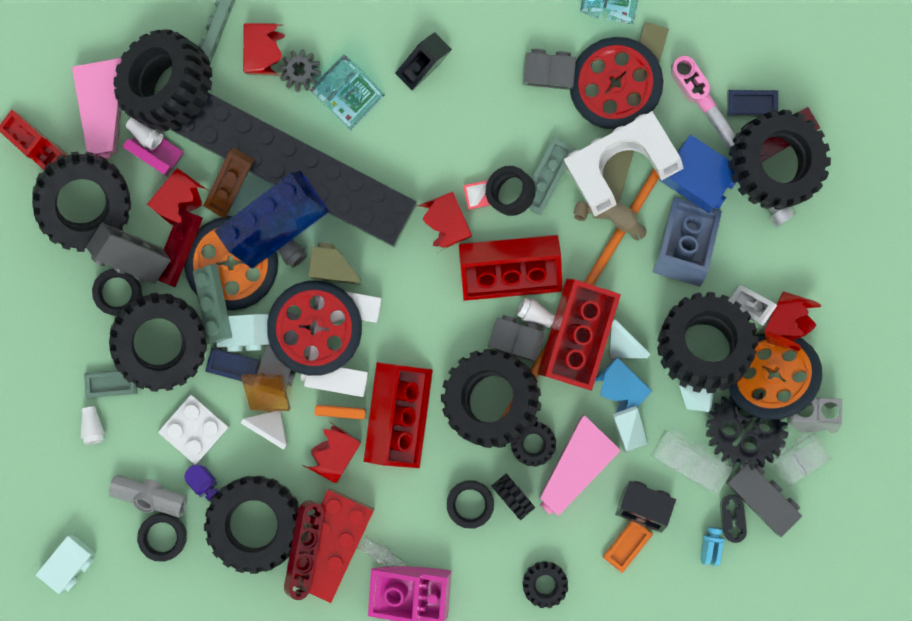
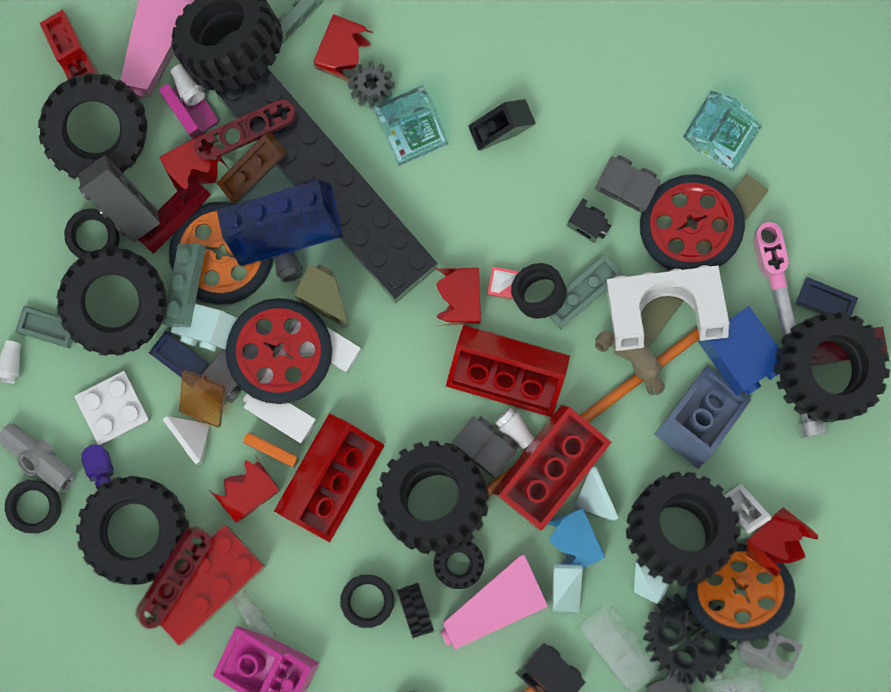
camera: 25 degrees right, 5 degrees down
(208, 150) = (243, 125): none -> dark red beam
(529, 115) = (589, 222): none -> black brick

